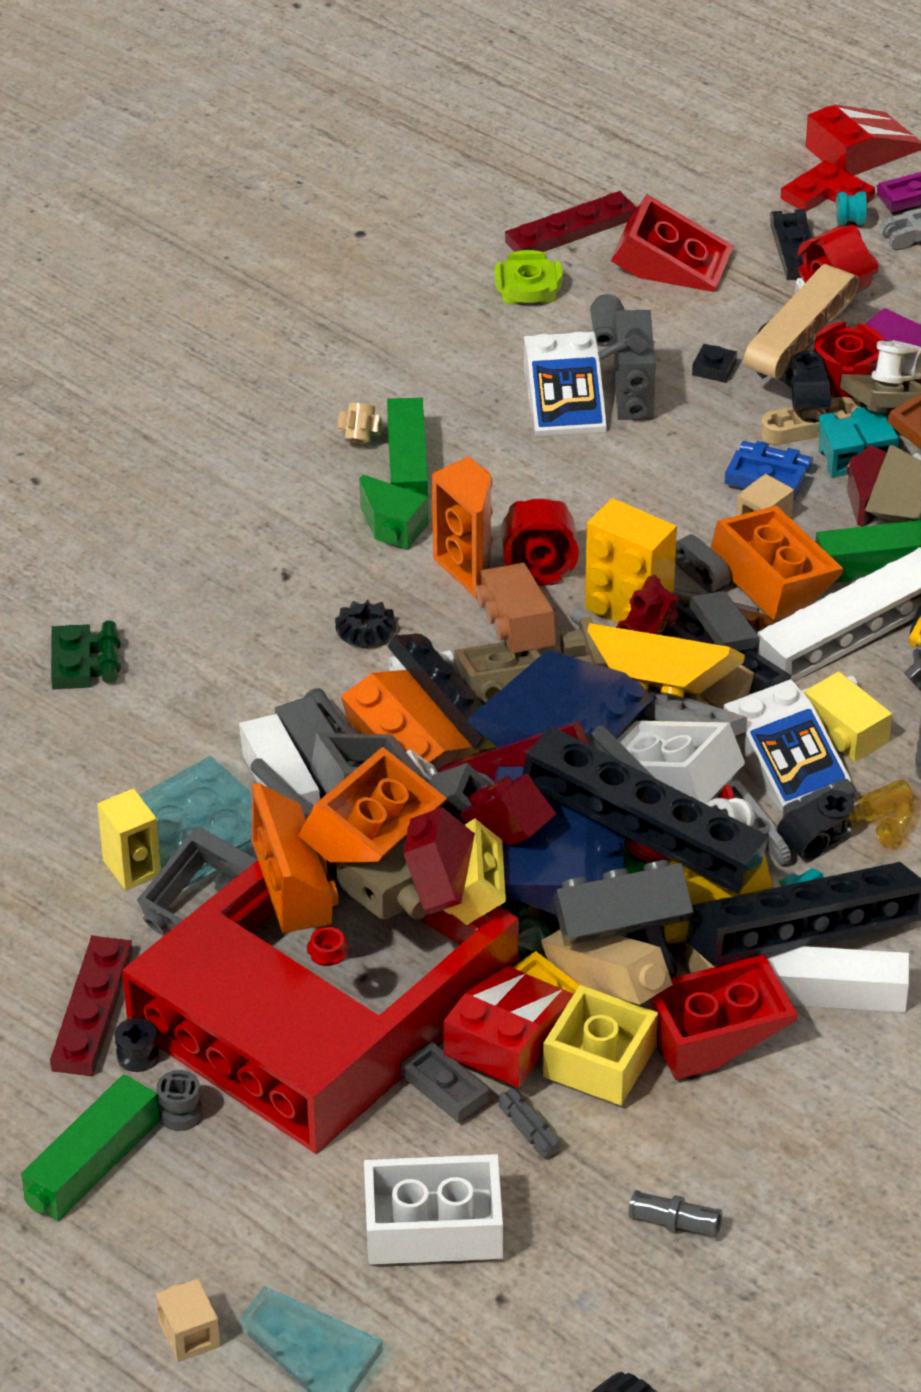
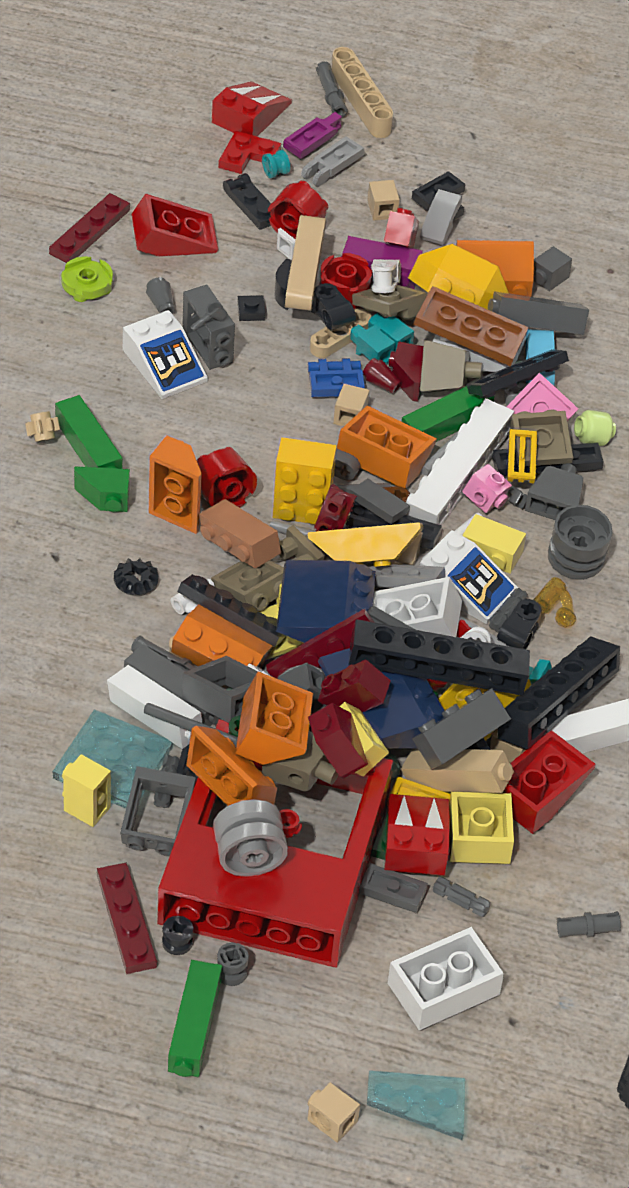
camera: 30 degrees left, 5 degrees up
(255, 941) = (250, 838): none -> light grey wheel
(828, 480) = (382, 376): none -> dark red cone
(878, 648) = (487, 489): none -> bright pink brick

